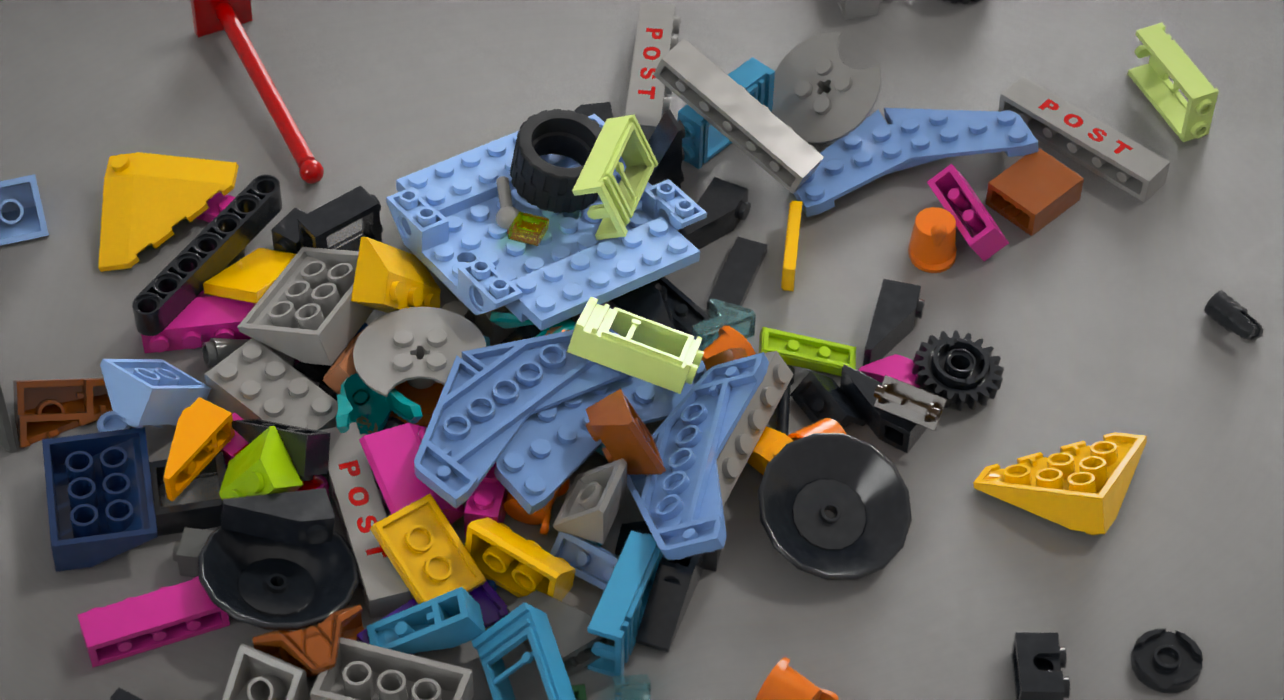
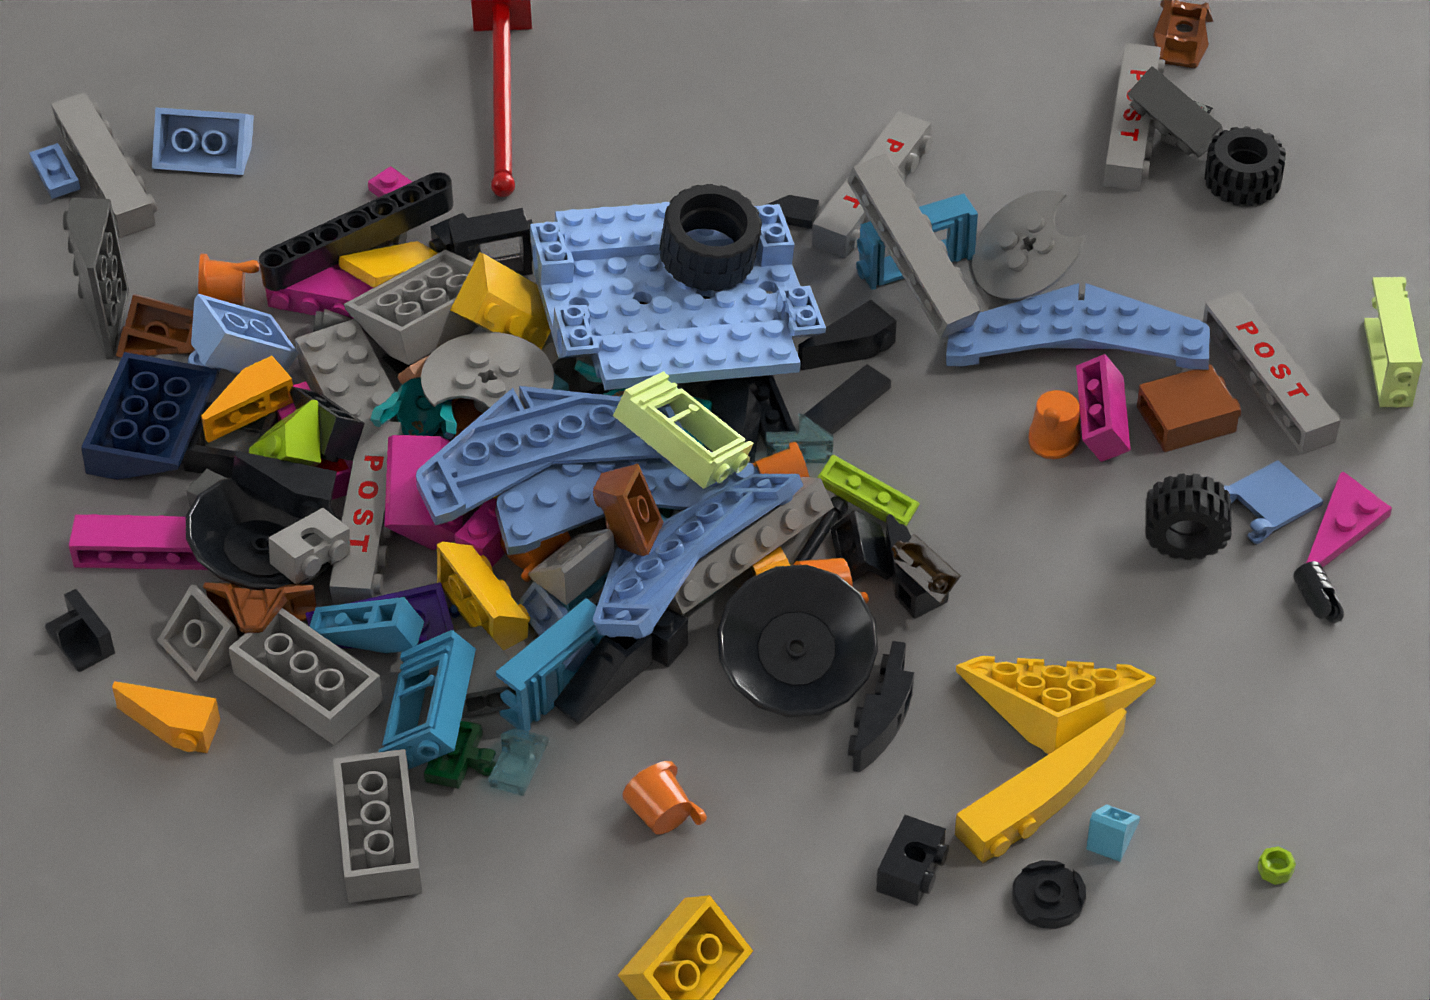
camera: 25 degrees right, 0 degrees up
(94, 341) = (224, 279): none -> orange hat
(151, 195) = (340, 164): yellow slope -> none
(337, 568) = (303, 557): none -> light grey brick
(427, 551) = (400, 557): yellow tile -> none
(507, 212) = (639, 276): light grey bar -> none
(528, 228) = (649, 292): clear neon green tile -> none
(617, 138) = (723, 265): yellowish green door -> none
(668, 150) = (824, 266): black slope -> none
(725, 356) = (772, 468): dark orange tile -> none
(791, 246) = (913, 388): yellow tile -> none
(893, 318) = (967, 488): black slope -> none
(893, 366) = (944, 538): dark pink slope -> none
(935, 541) = (883, 712): none -> black slope
(958, 370) = (1003, 555): black gear -> none
(1099, 284) = (1188, 516): none -> black tyre
(1105, 580) = (1037, 792): none -> yellow slope
(1144, 246) = (1274, 498): none -> medium blue flag
(1189, 585) = (1111, 831): none -> medium azure slope
(1216, 246) = (1348, 518): none -> dark pink wing

